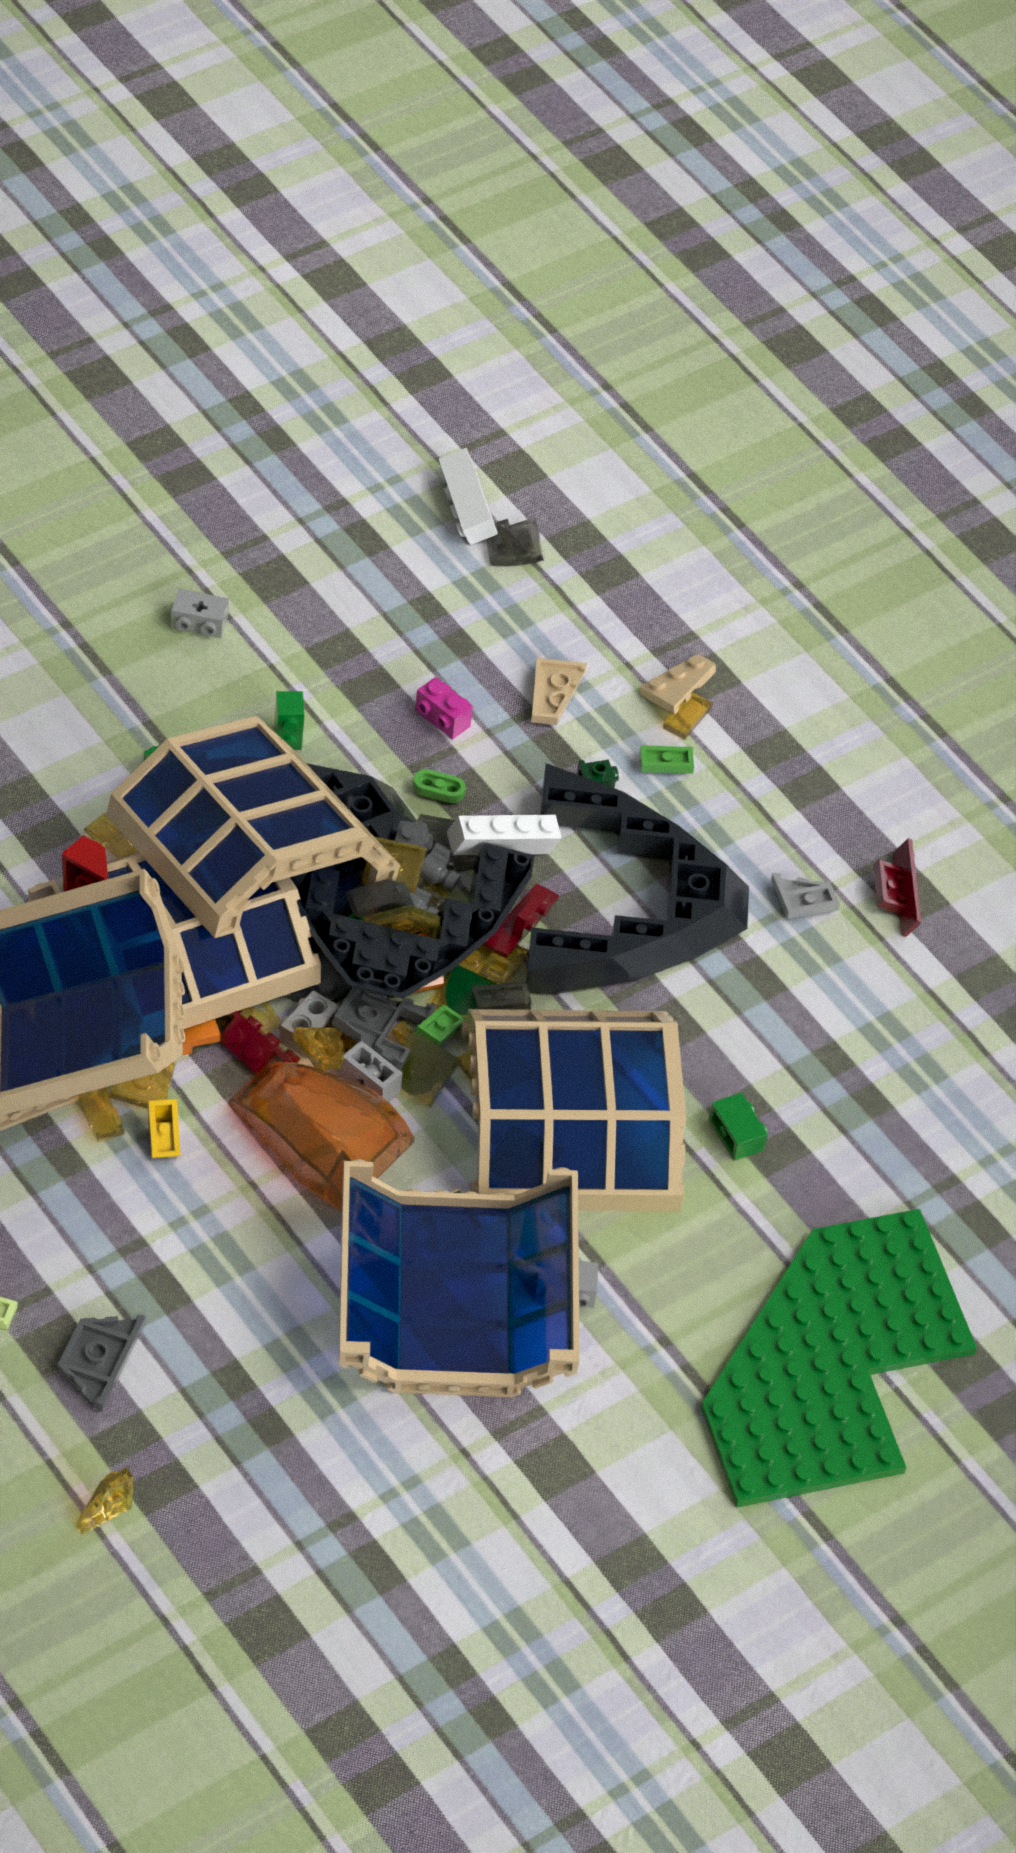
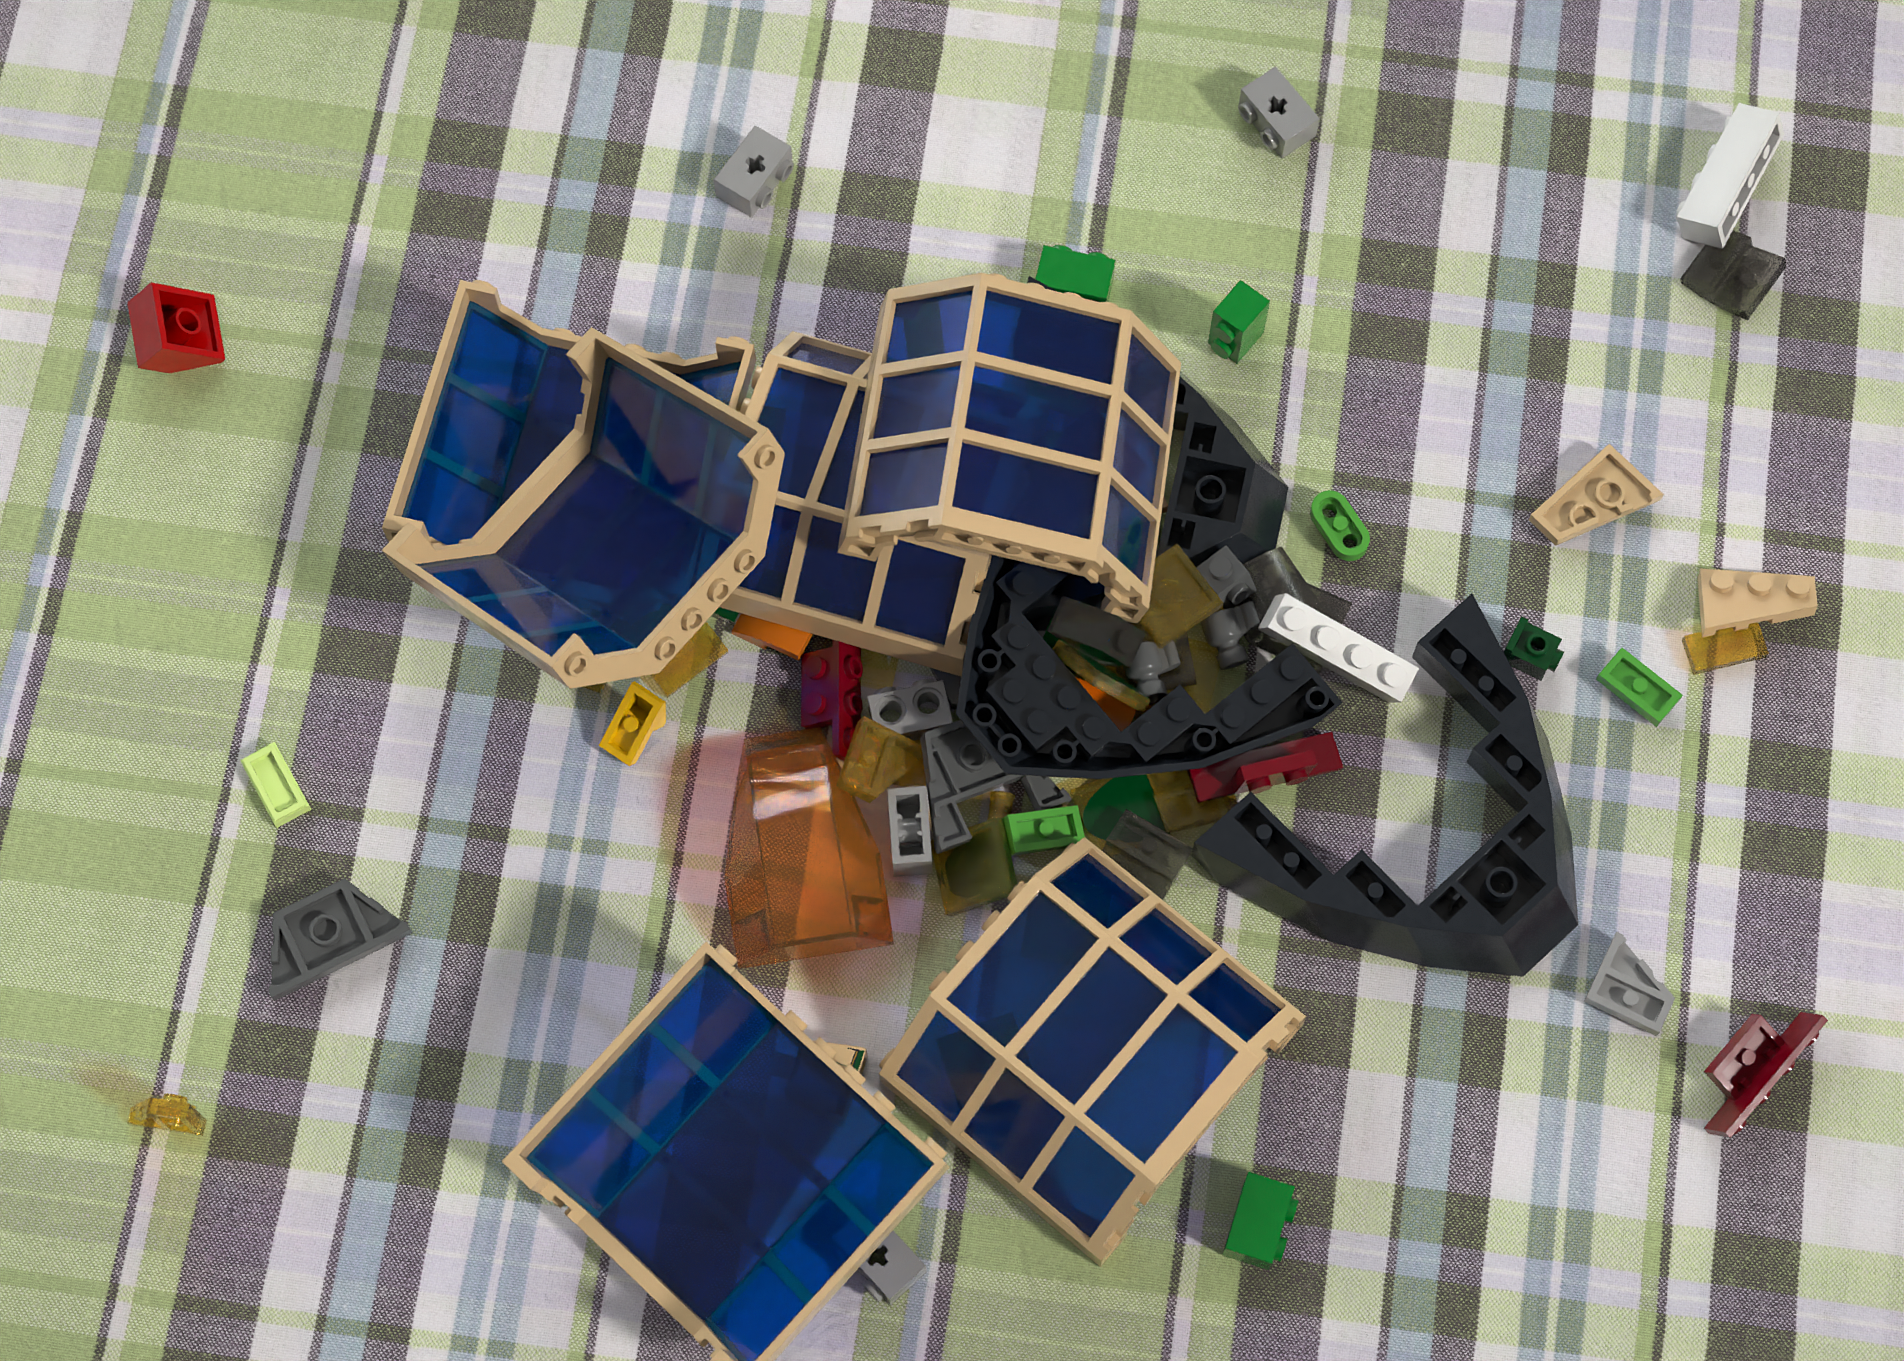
camera: 50 degrees right, 20 degrees up
(83, 864) = (769, 371): red slope -> none
(444, 708) = (1437, 430): dark pink brick -> none

